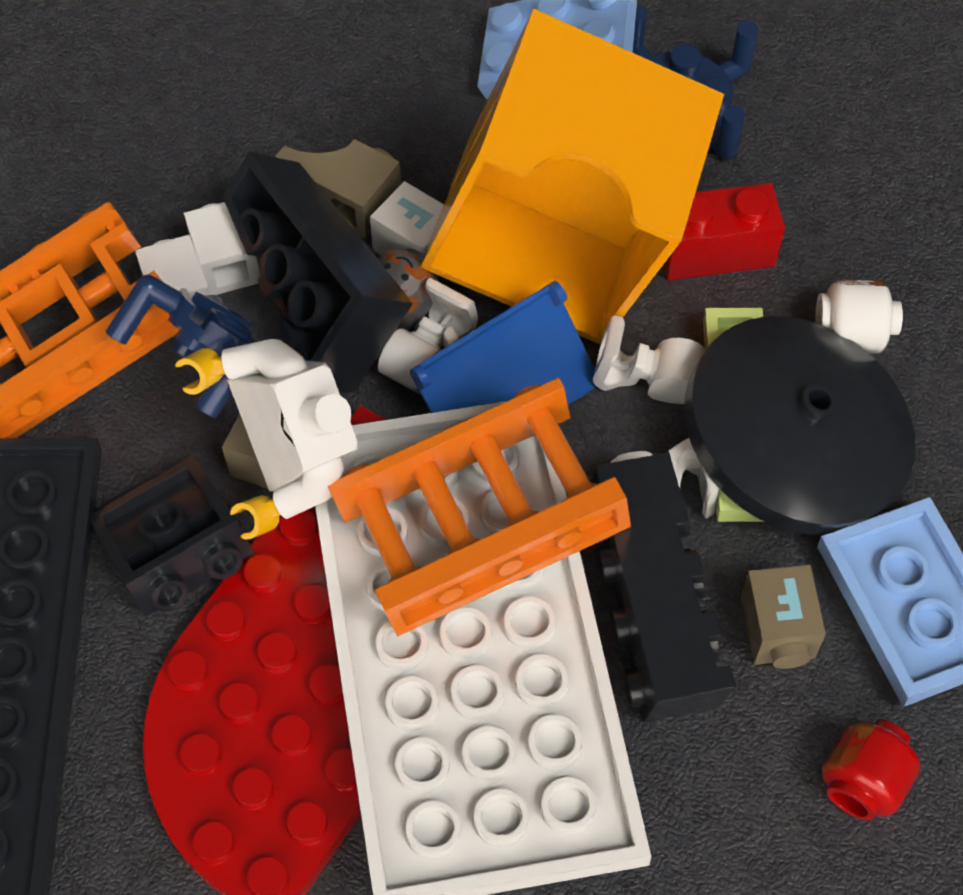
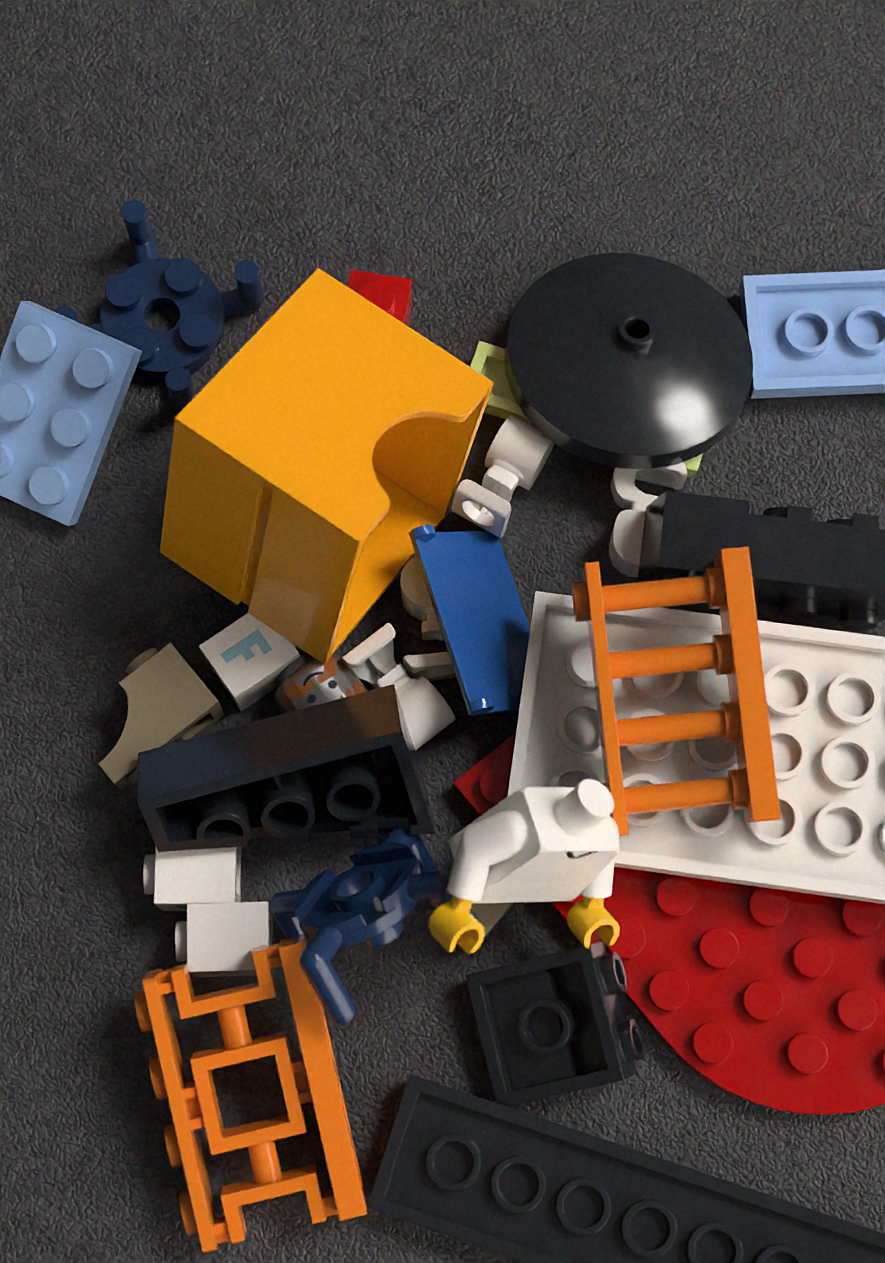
camera: 75 degrees left, 15 degrees up
(782, 616) = (824, 457): dark tan brick -> none
(860, 312) = (514, 254): white head -> none

